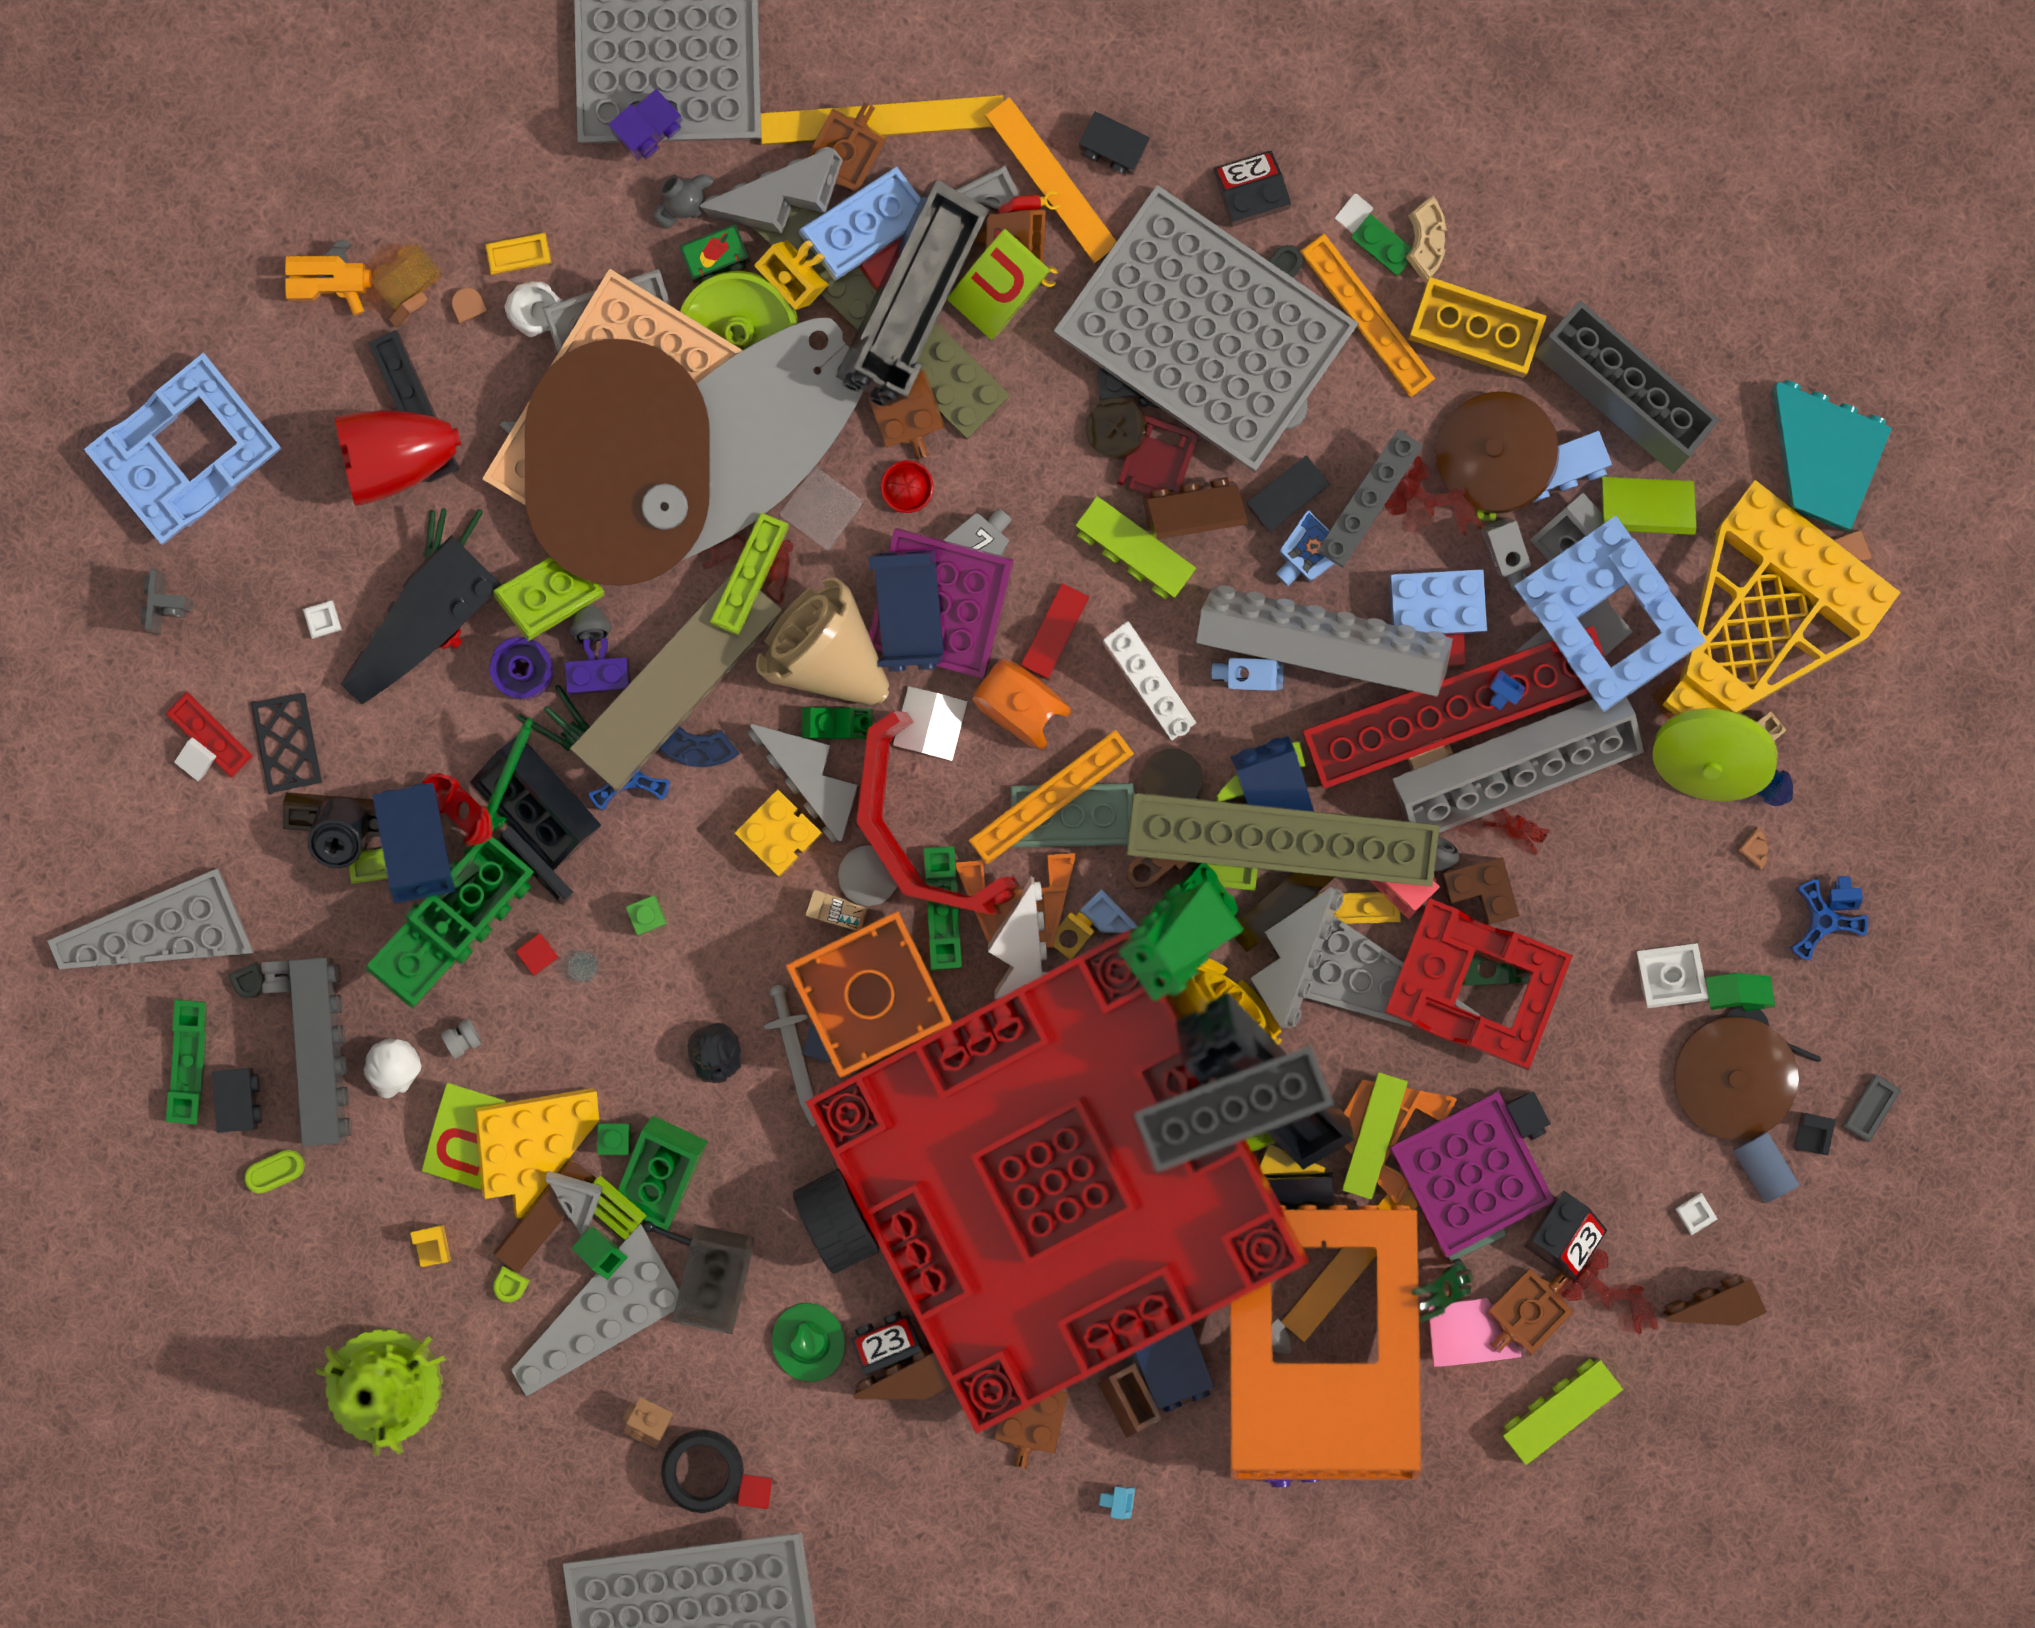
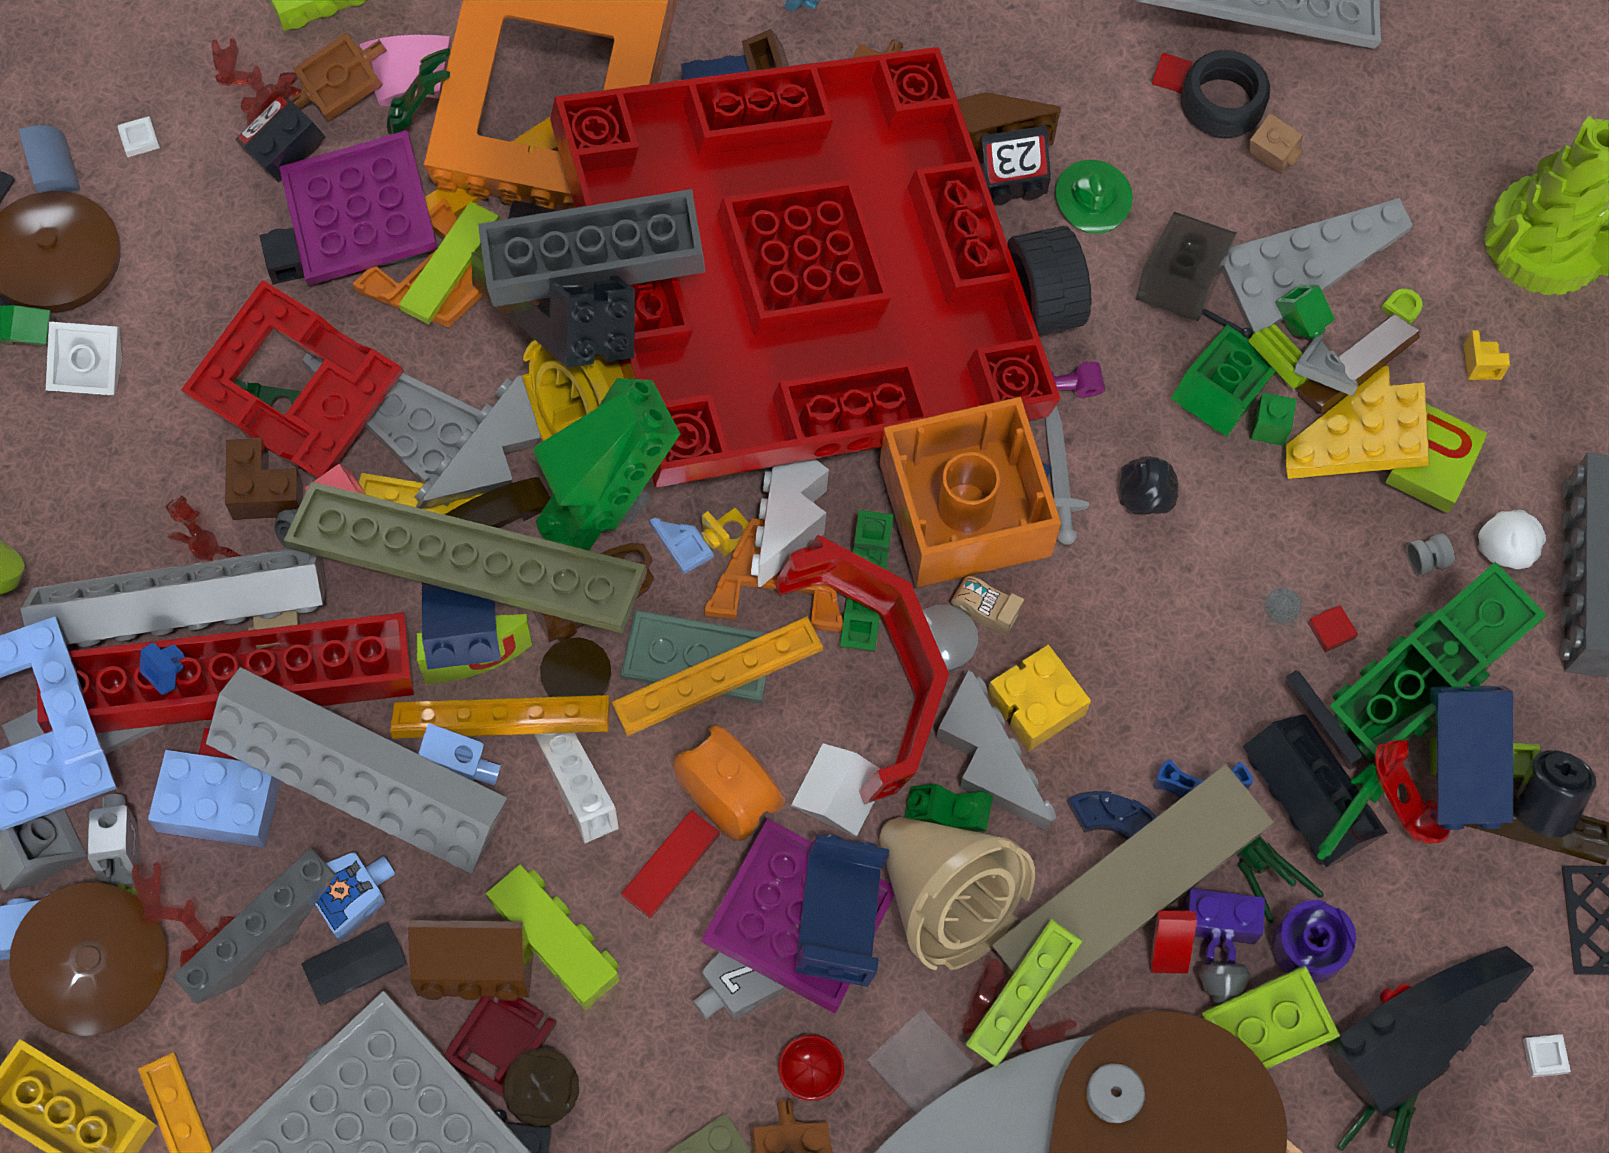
camera: 170 degrees left, 20 degrees down
(636, 643) = (1173, 942): none -> red tile
(646, 915) = (1203, 639): bright green brick -> none
(786, 1144) = (1086, 380): none -> magenta leg
(1223, 723) = (503, 716): none -> light orange tile
(1728, 1304) = (144, 37): reddish brown slope -> none

